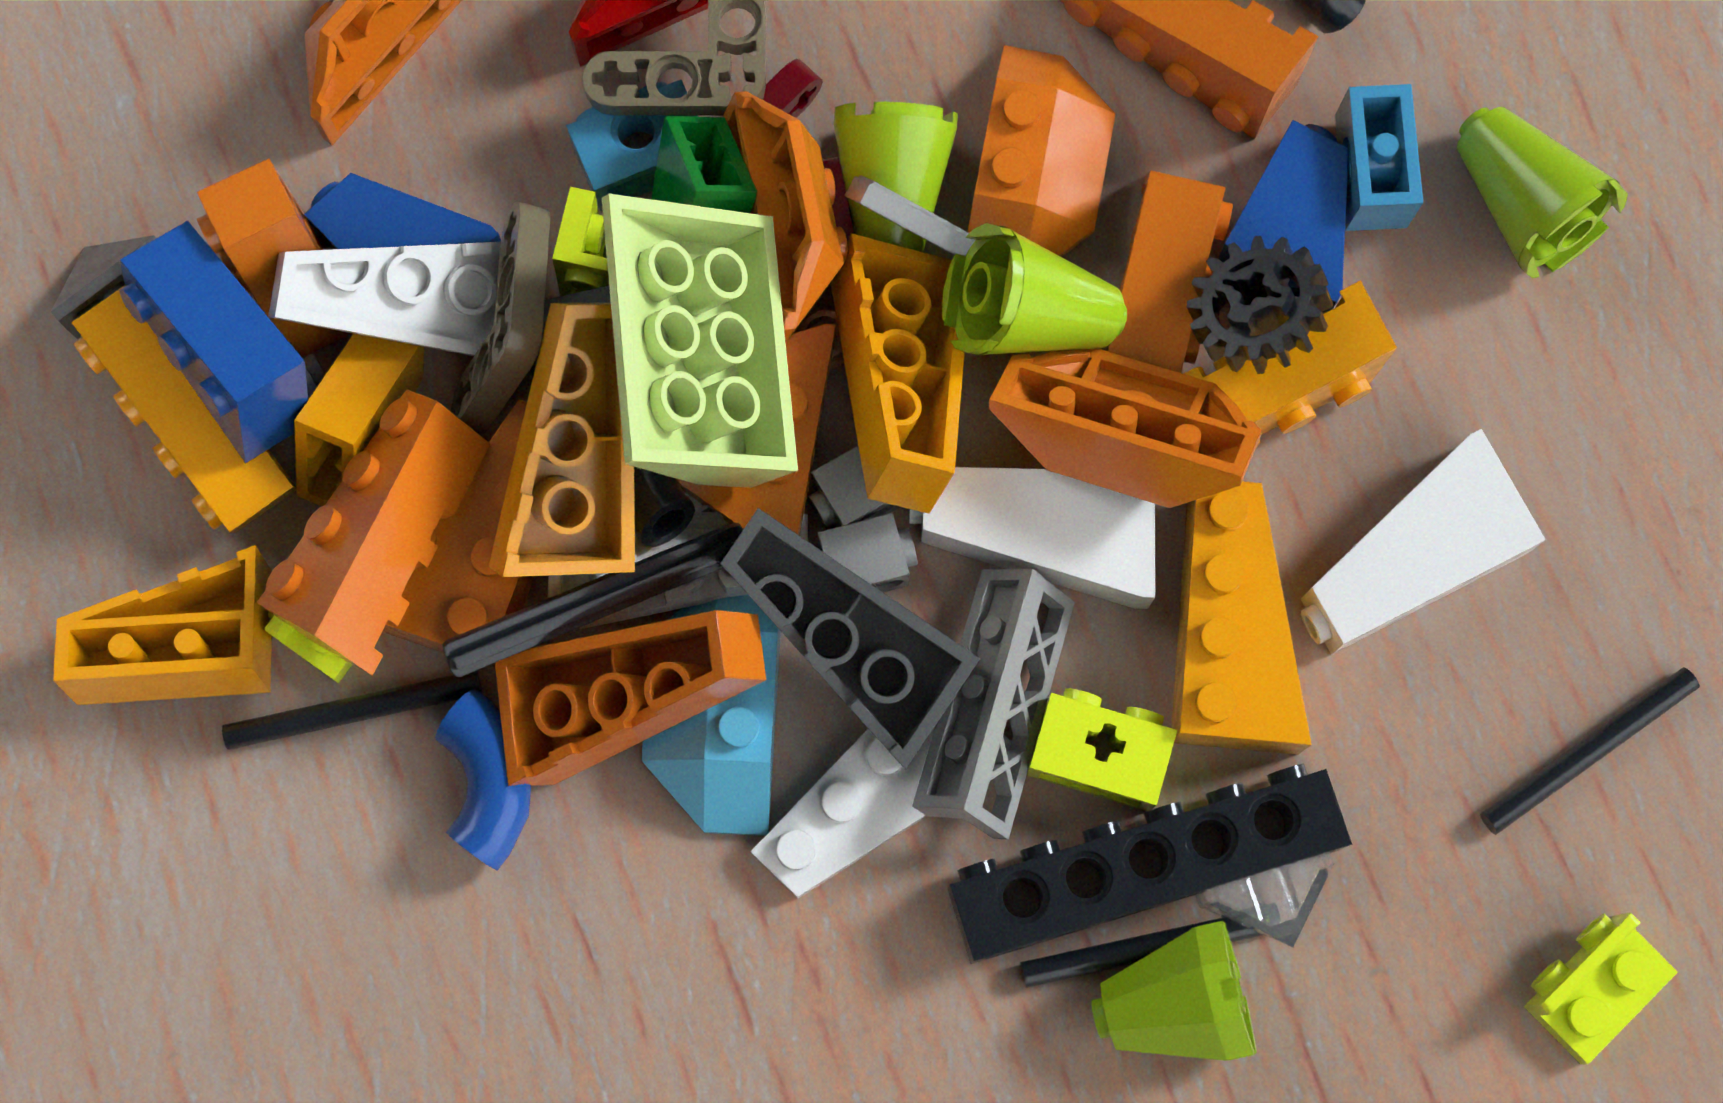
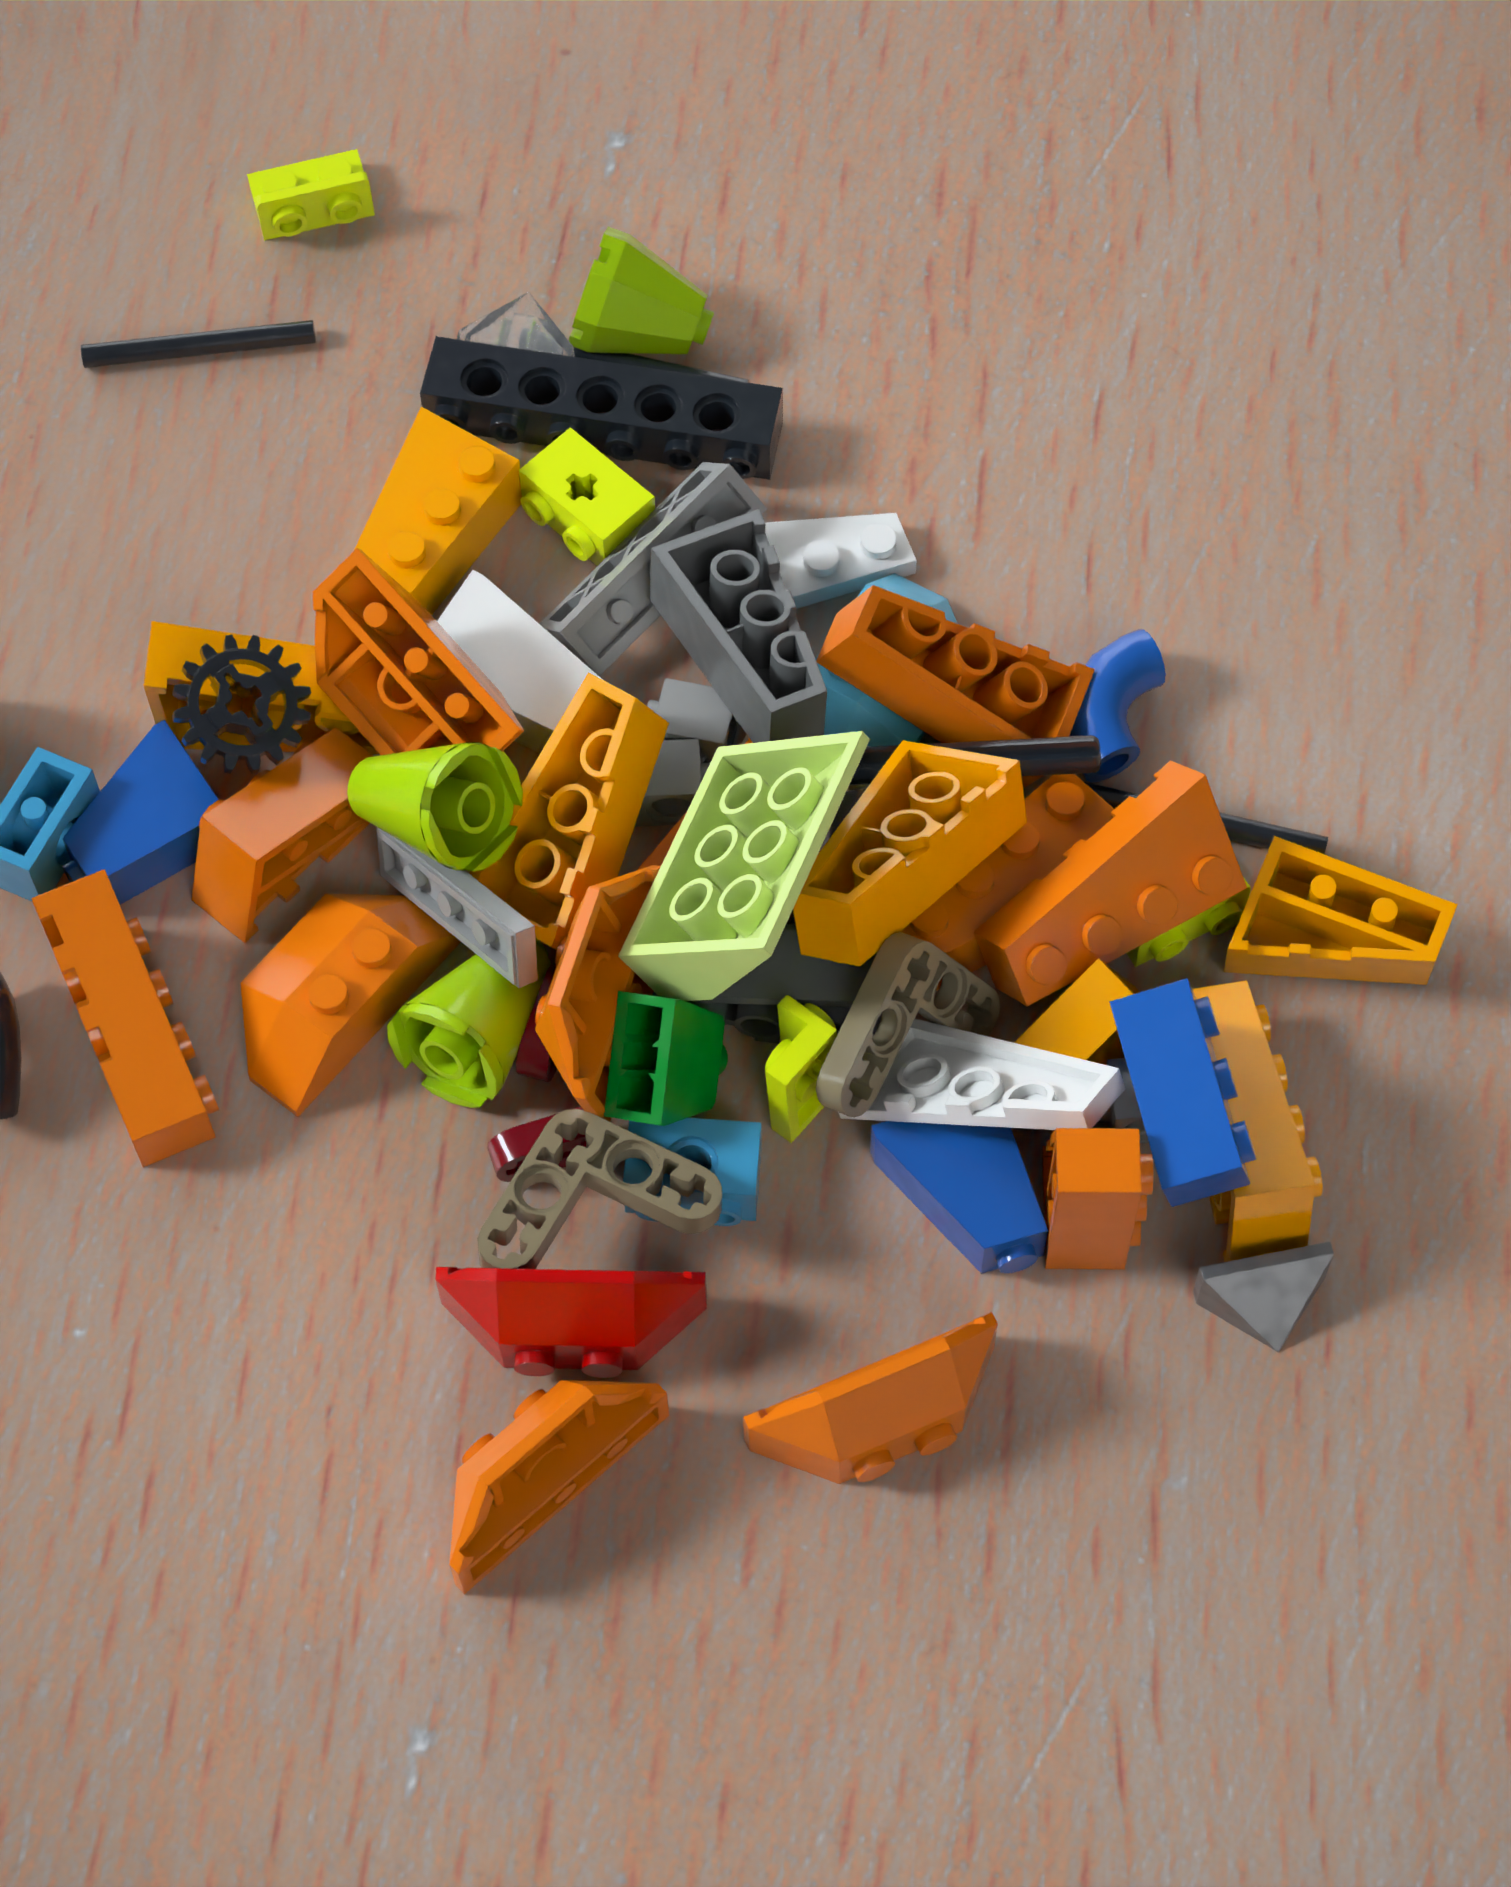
camera: 150 degrees left, 15 degrees down
(1433, 542) = (227, 526): white slope -> none

